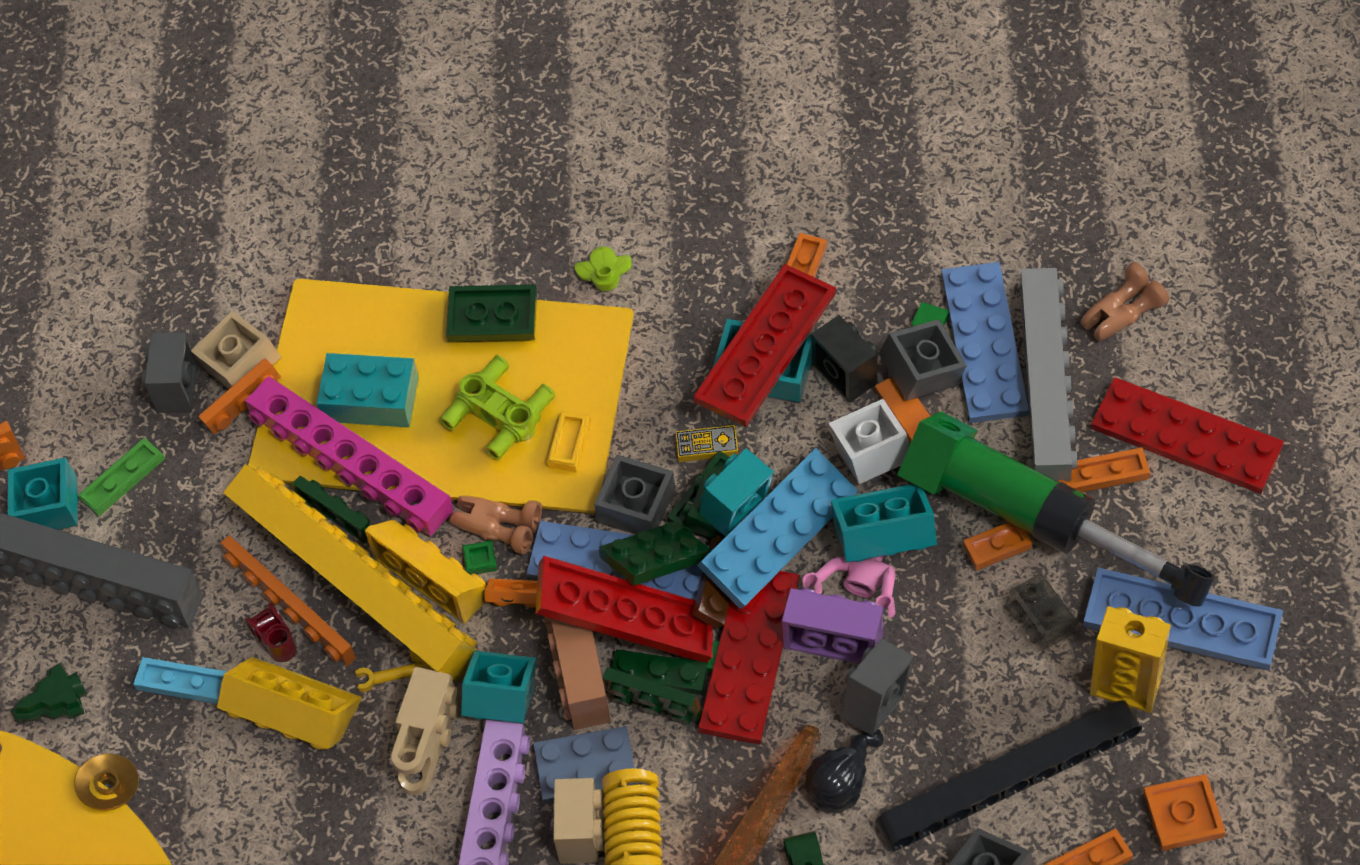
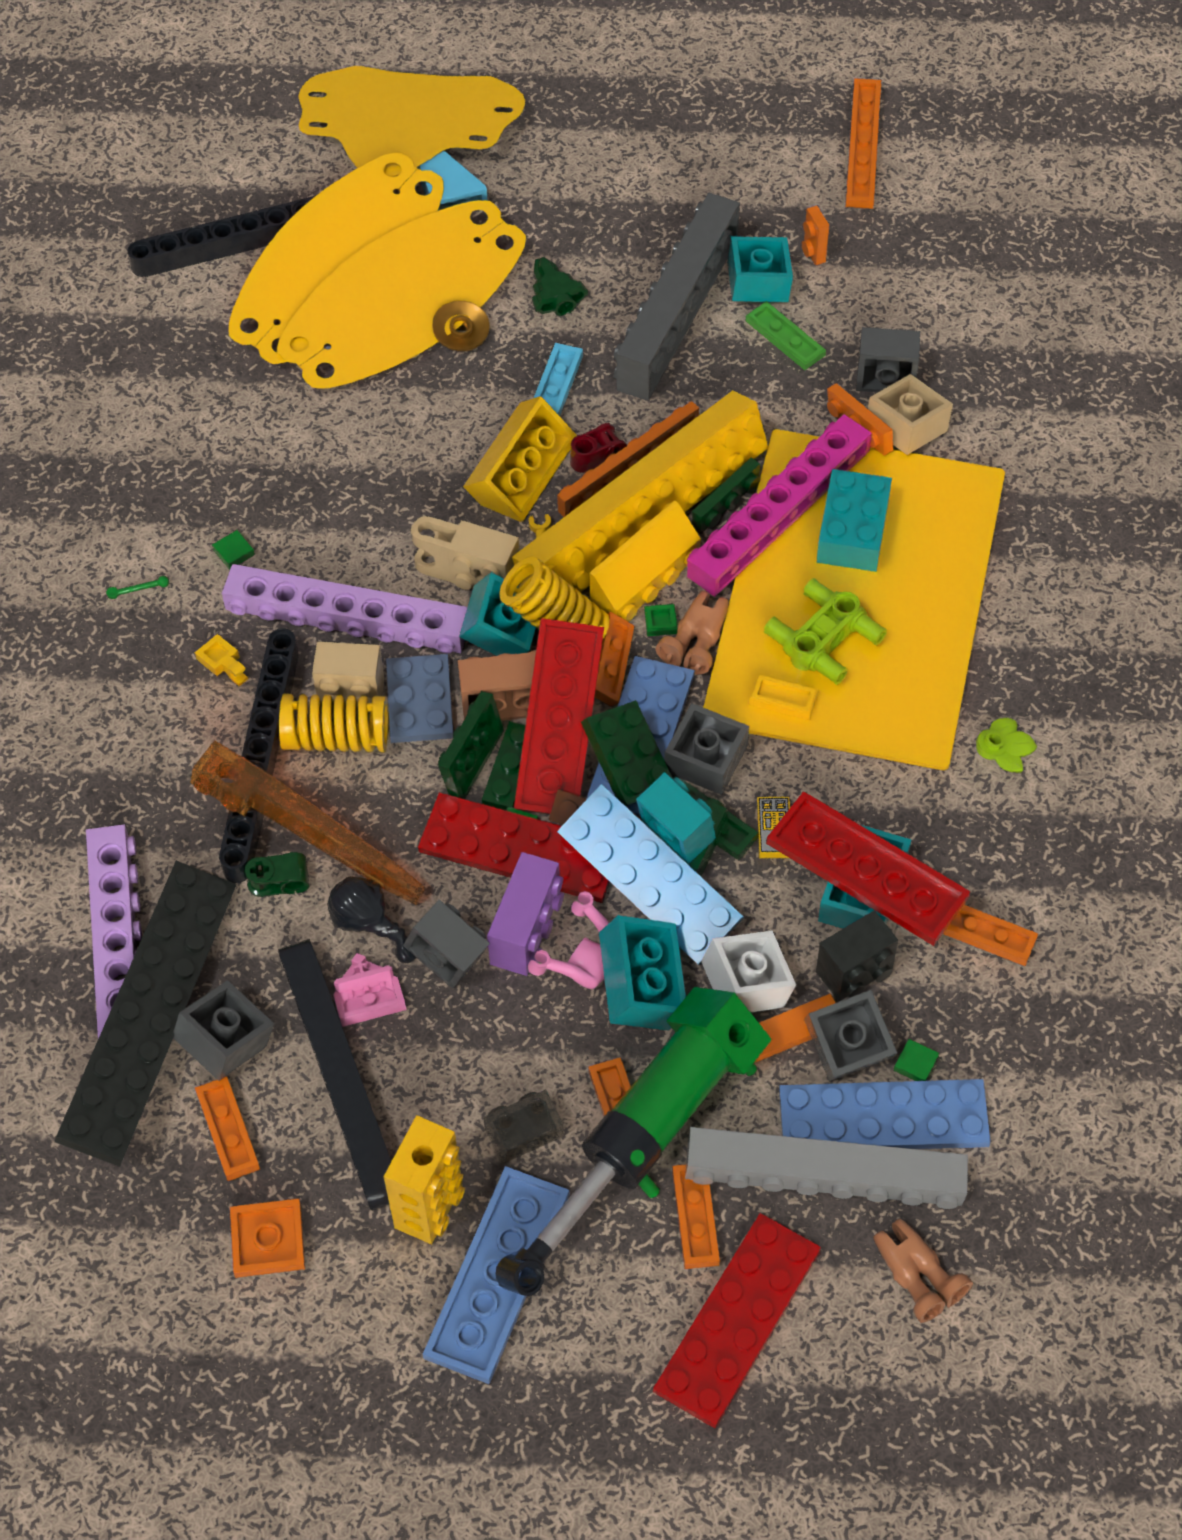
camera: 90 degrees right, 0 degrees up
(483, 643) = (548, 596): none -> yellow piece
(491, 313) = (944, 632): dark green plate -> none
(918, 764) = (367, 992): none -> bright pink slope

